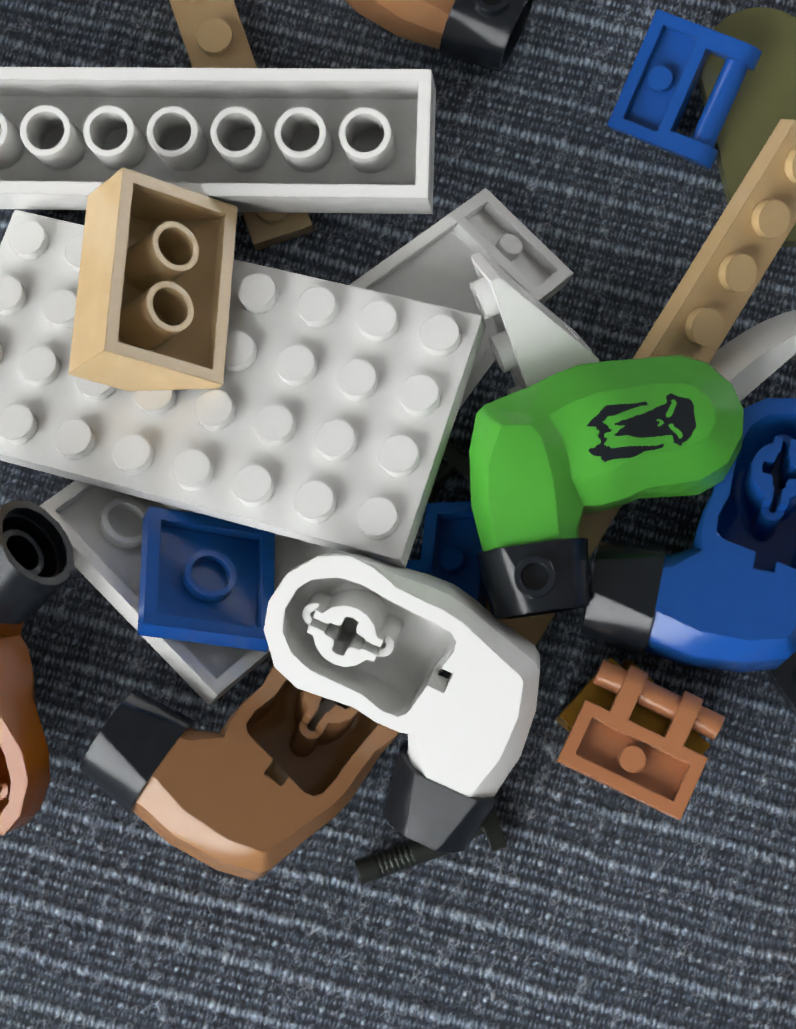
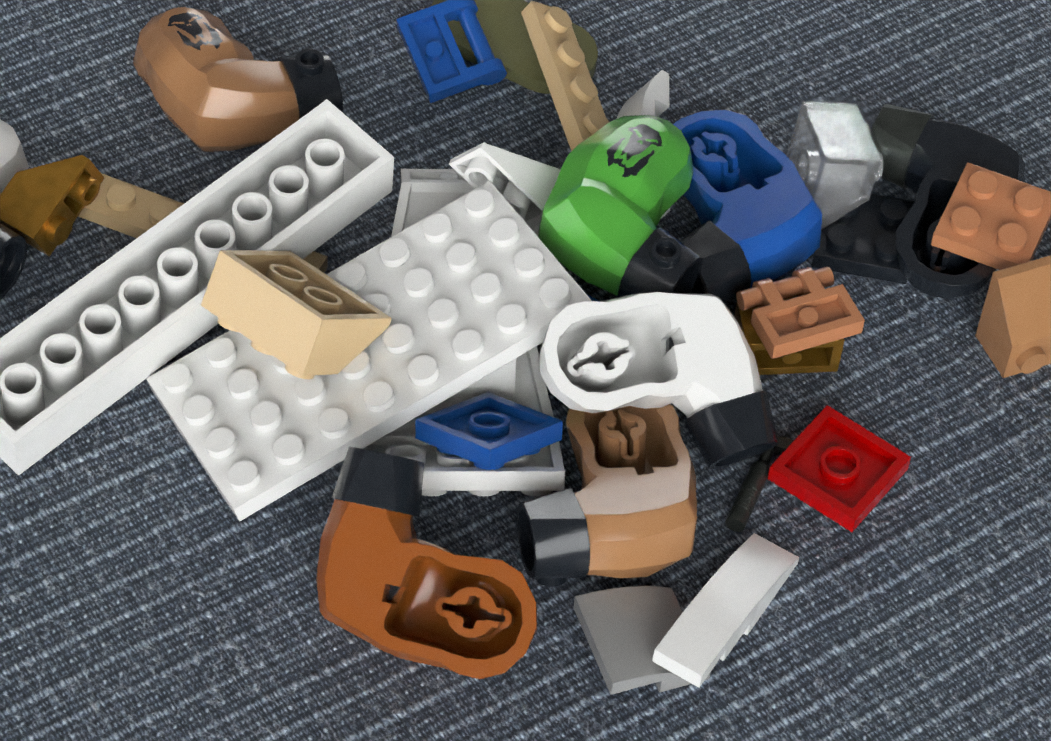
camera: 55 degrees left, 30 degrees down
(138, 905) = (624, 631): none -> light grey slope
(236, 957) = (725, 609): none -> white slope
(514, 918) = (839, 468): none -> red plate

